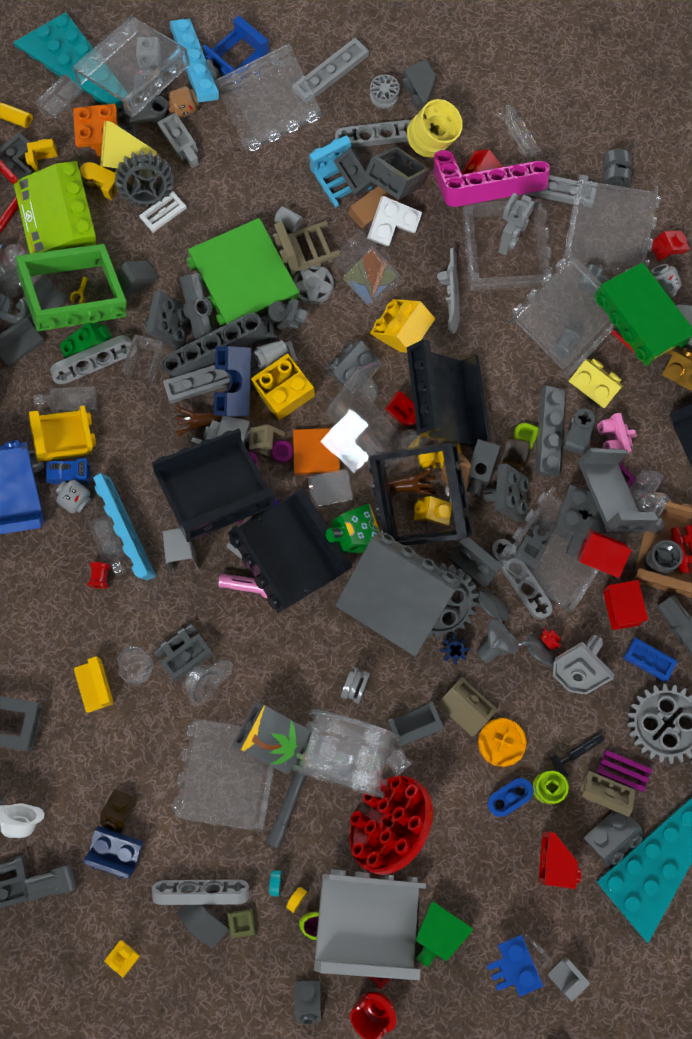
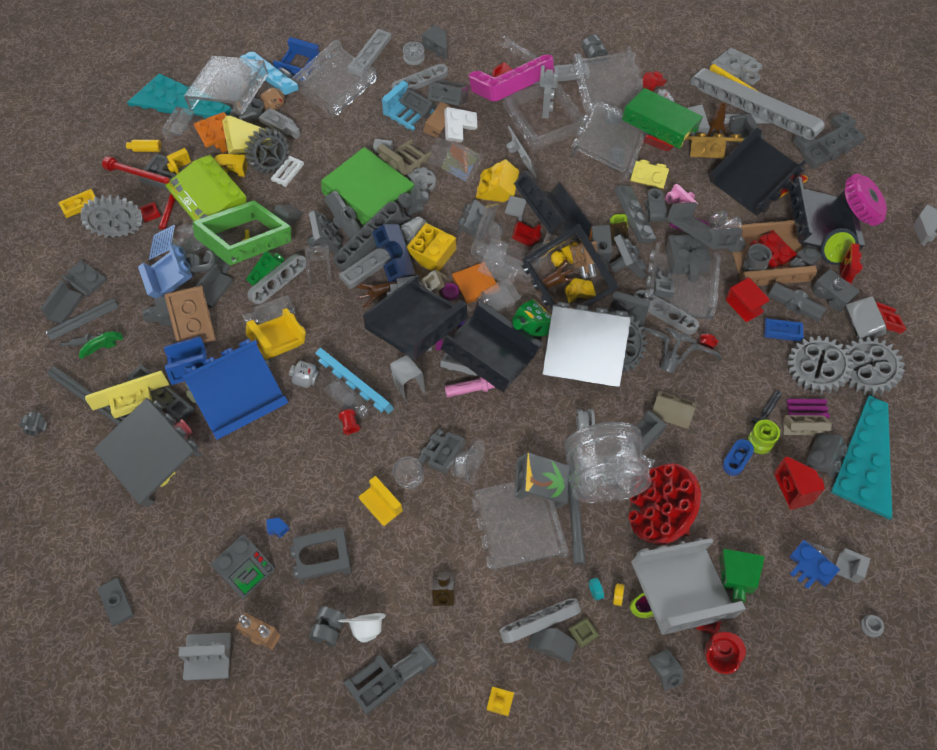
camera: 25 degrees left, 15 degrees down
(68, 470) = (284, 360): blue leg -> none
(114, 852) = (455, 618): dark blue bracket -> none
(402, 373) = (516, 207): none -> light grey panel
(434, 128) = (460, 60): light yellow wheel -> none
(447, 650) = (643, 376): dark blue gear -> none
(502, 742) = (711, 423): light orange tile -> none
(581, 669) = (741, 350): light grey piece -> none
(604, 553) = (718, 264): red piece -> none

